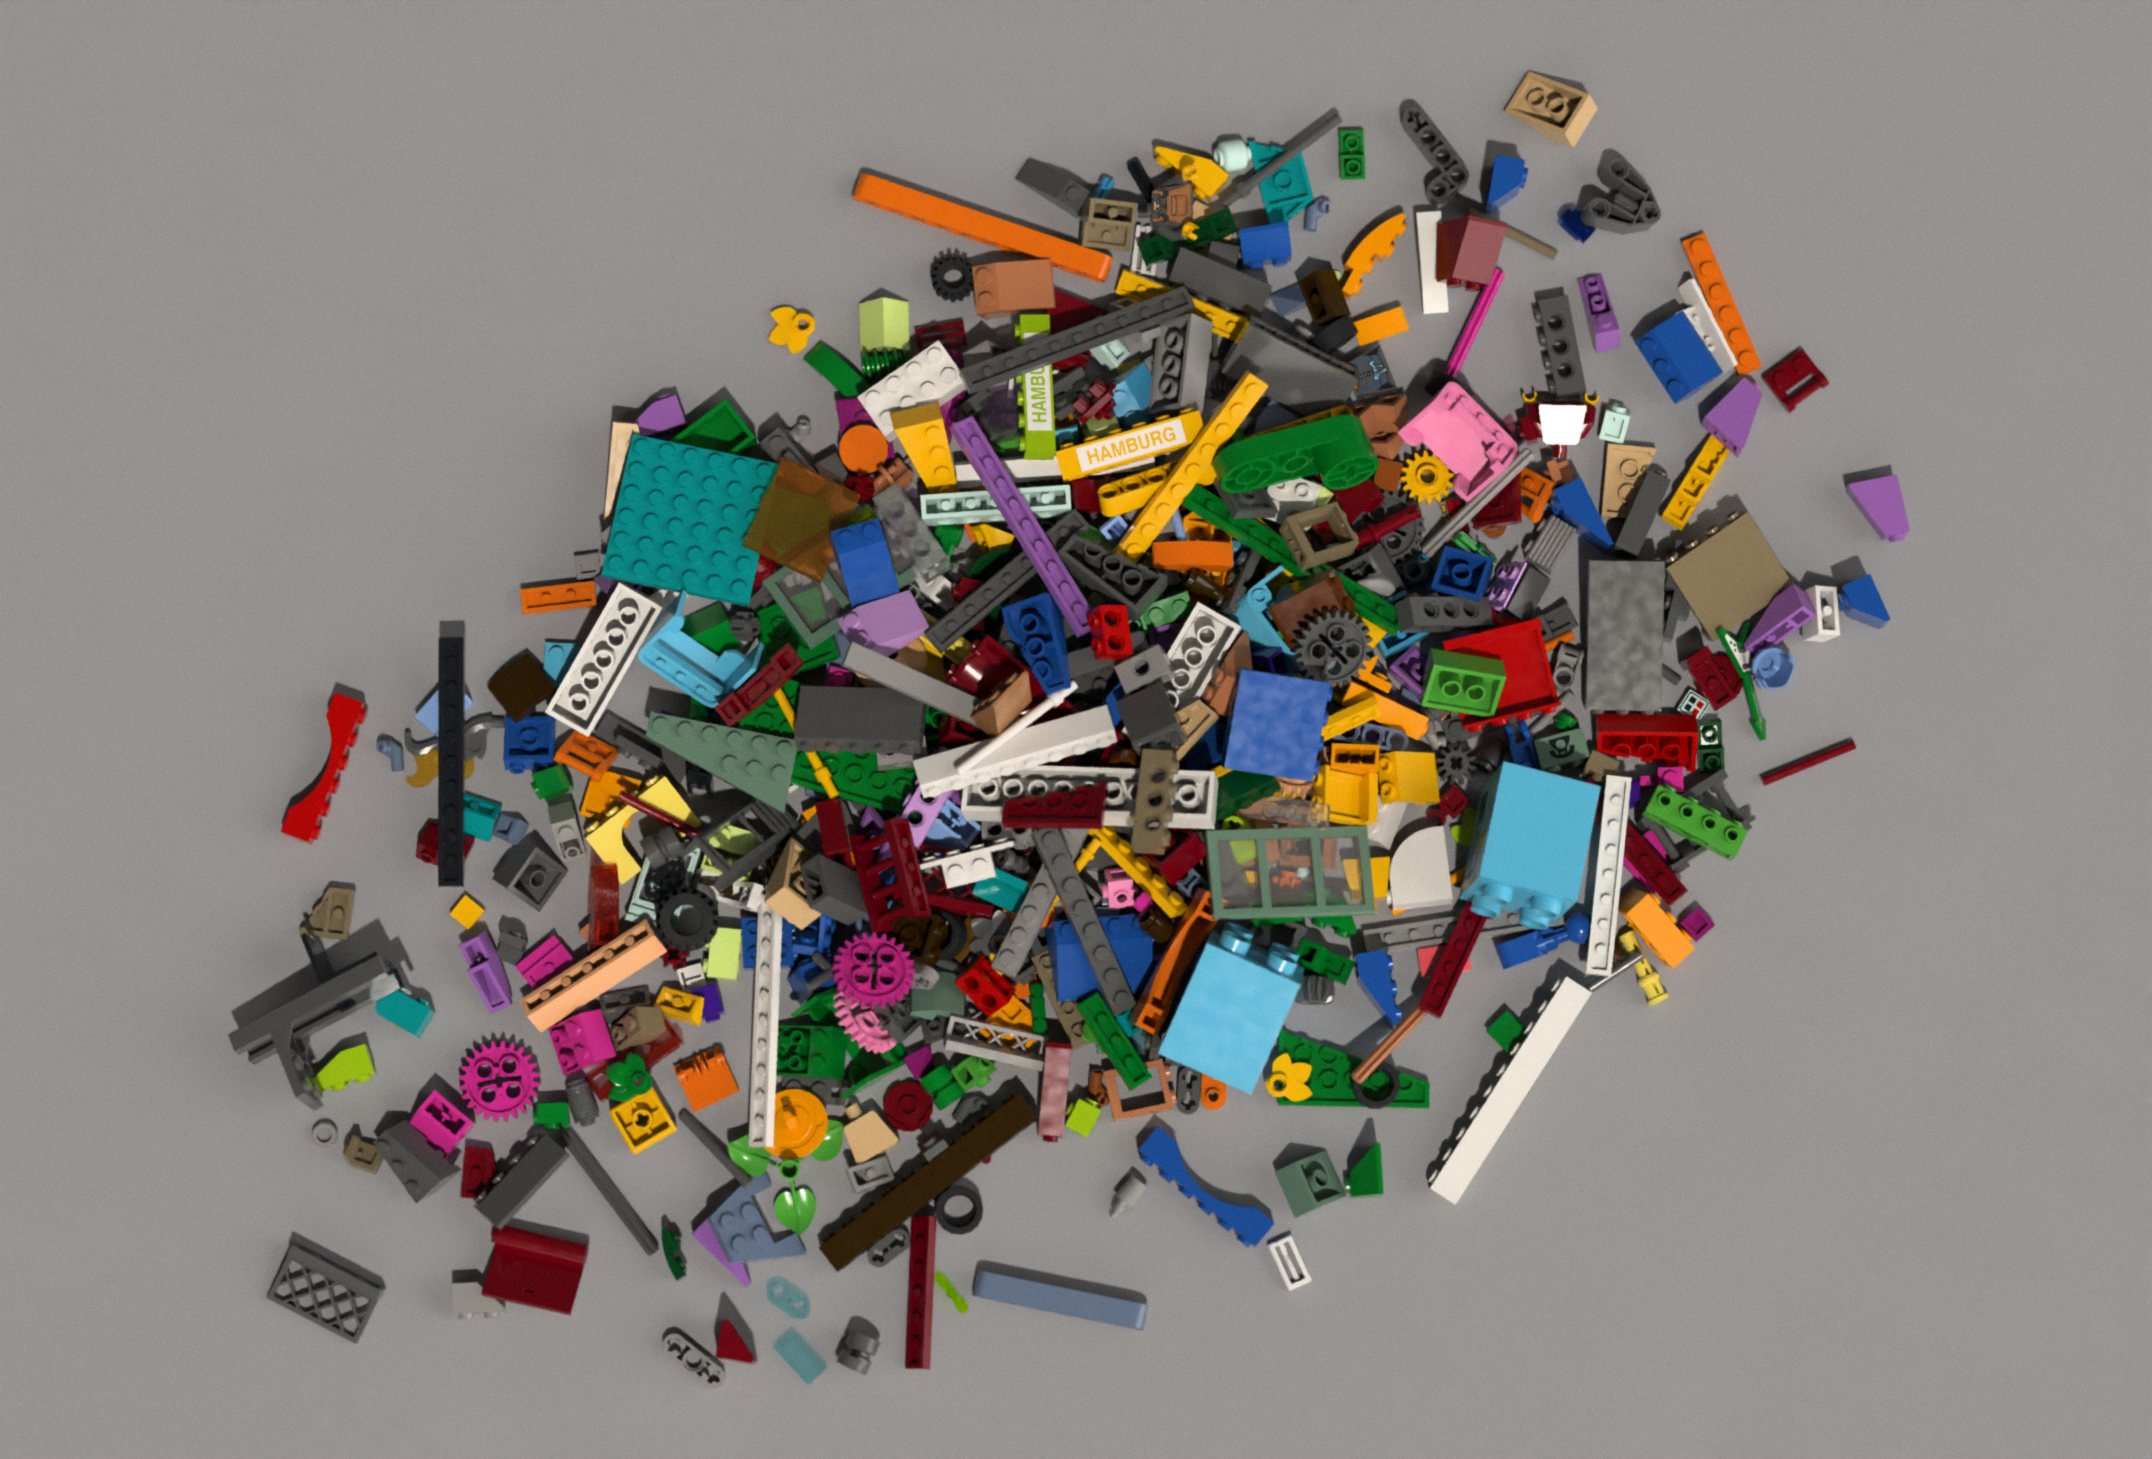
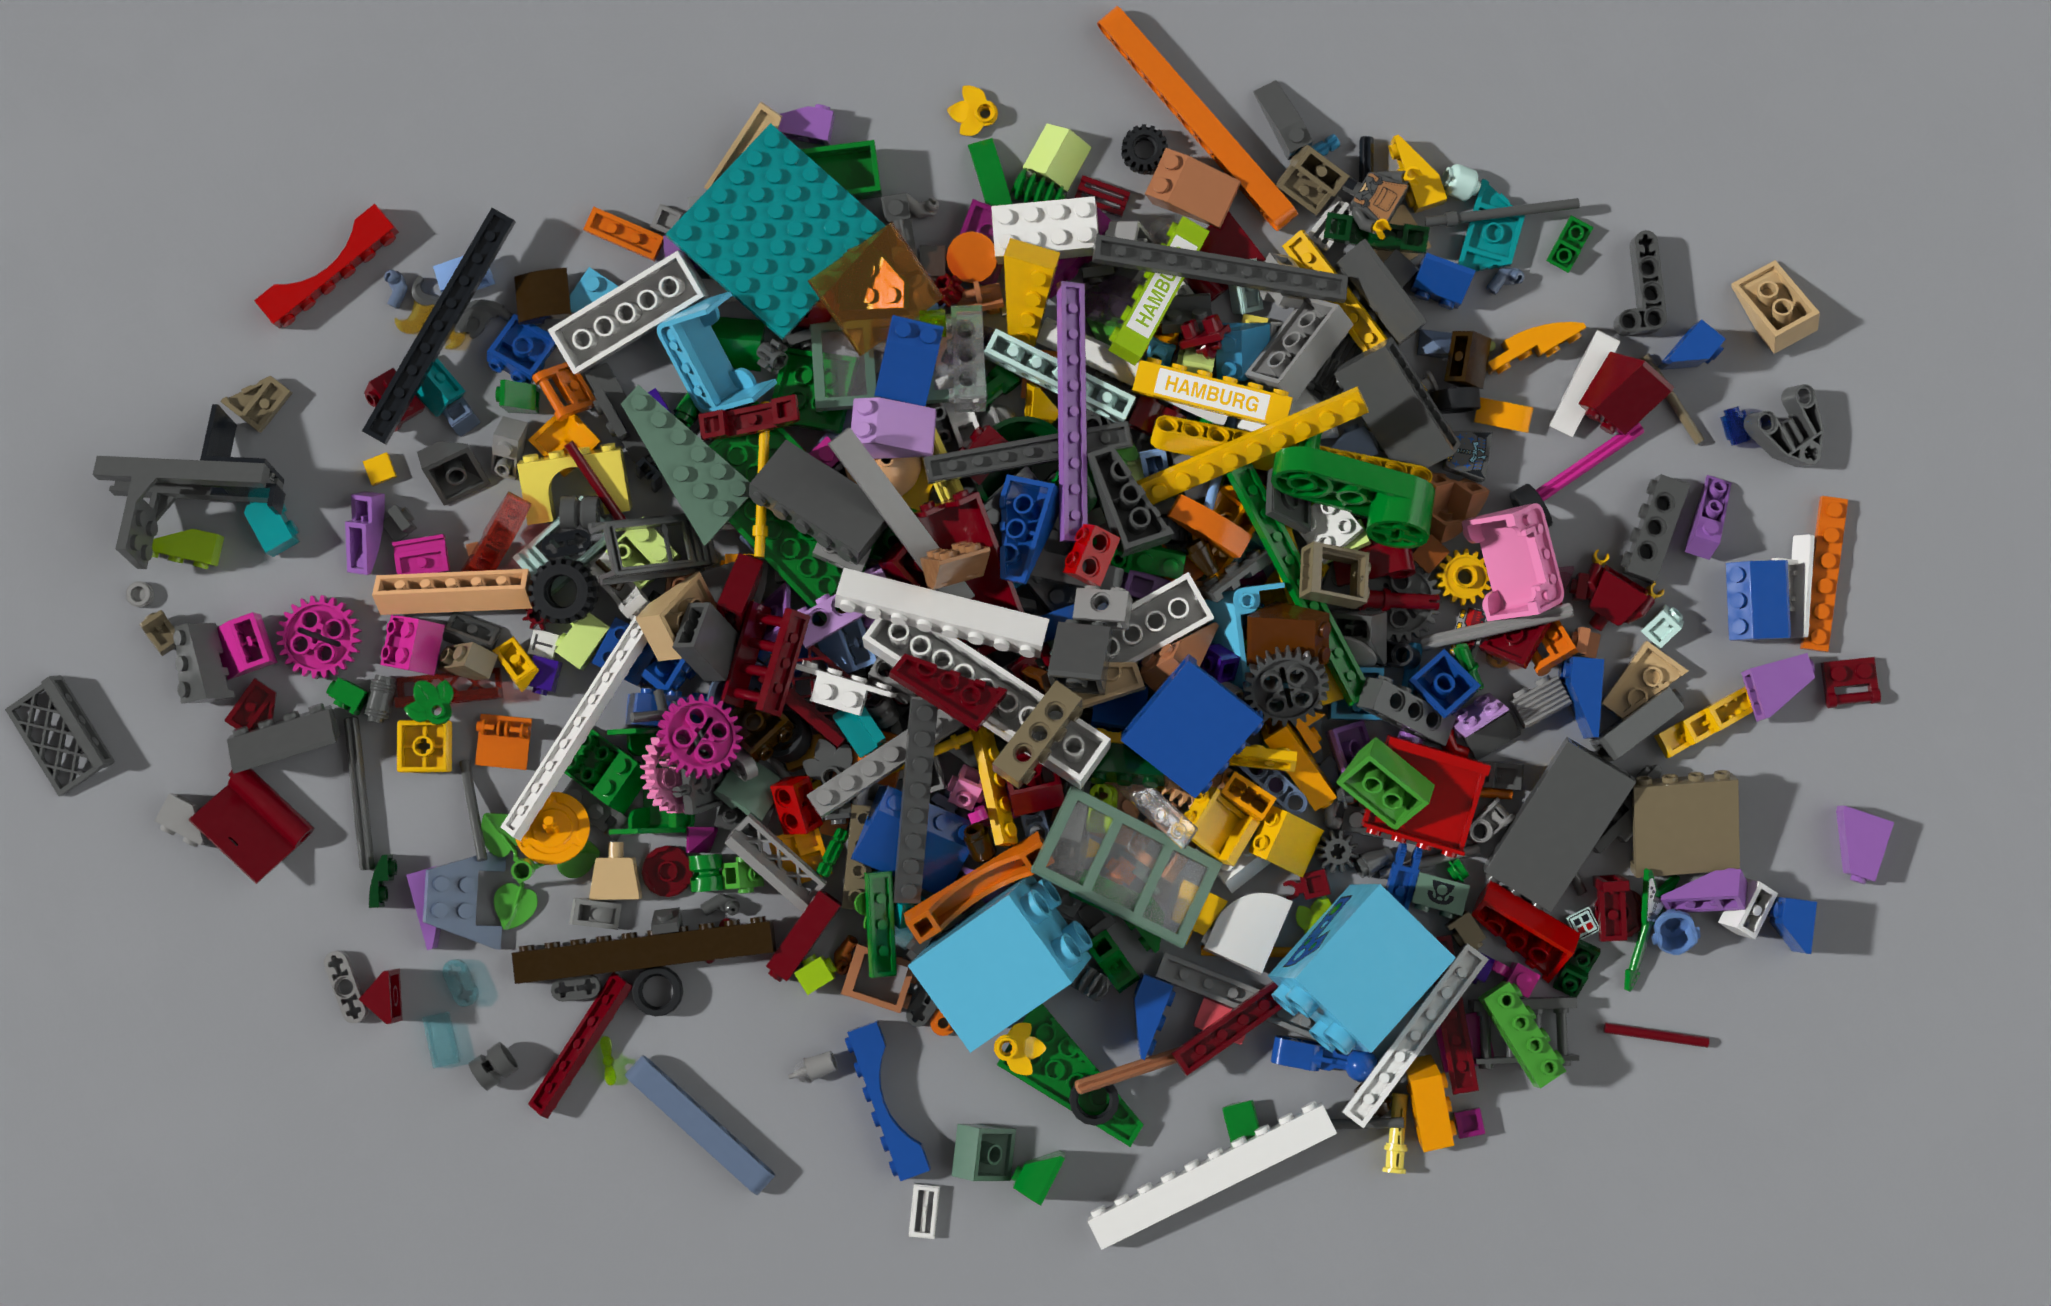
camera: 30 degrees right, 5 degrees up
(1052, 700) = (1002, 586): white bar -> none

